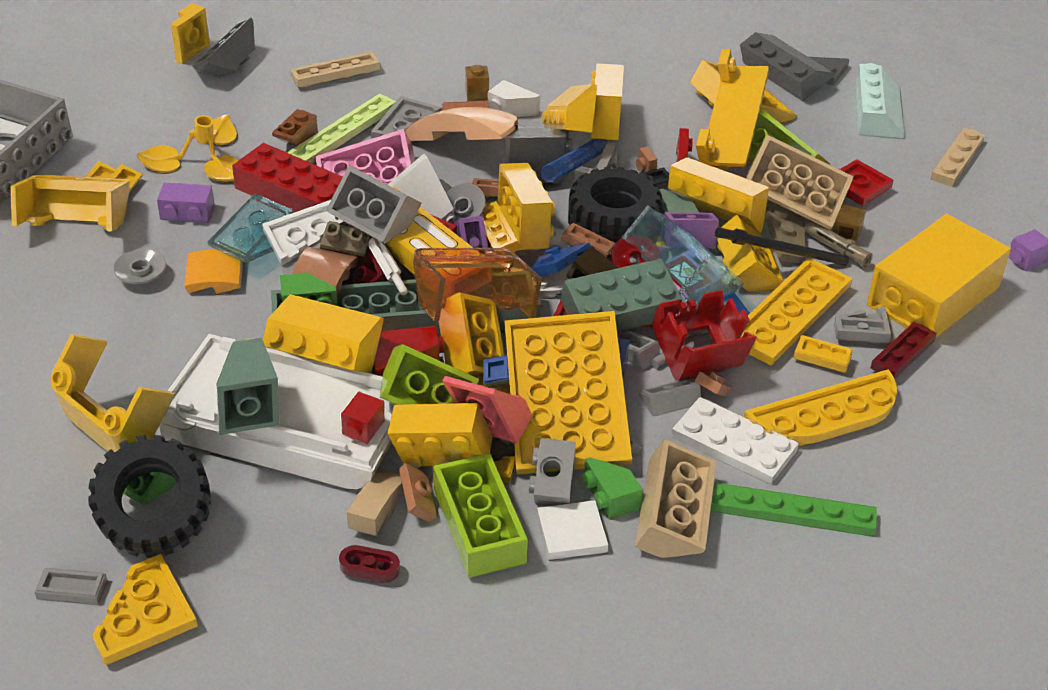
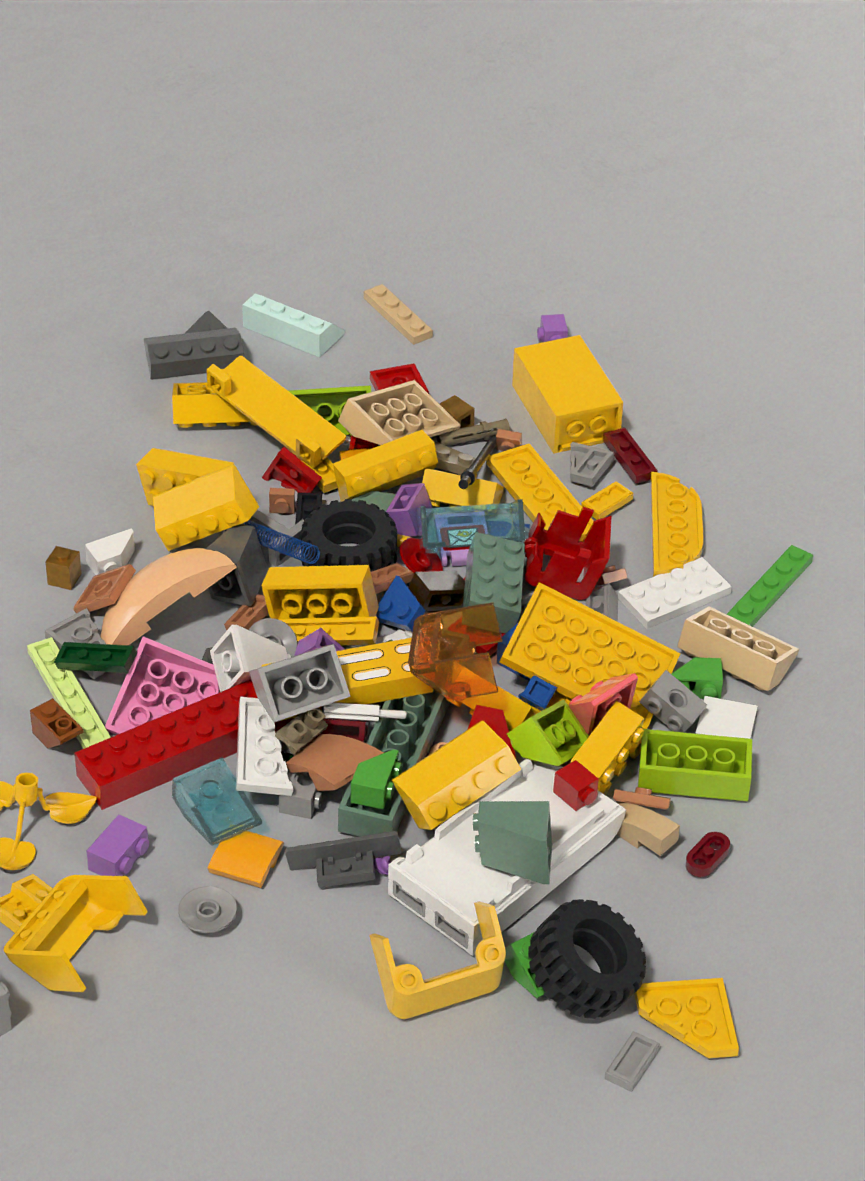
camera: 65 degrees left, 0 degrees up
(230, 319) = (344, 859): none -> dark grey bracket
(374, 120) = (95, 657): none -> dark green plate
(843, 263) = (508, 439): none -> nougat plate

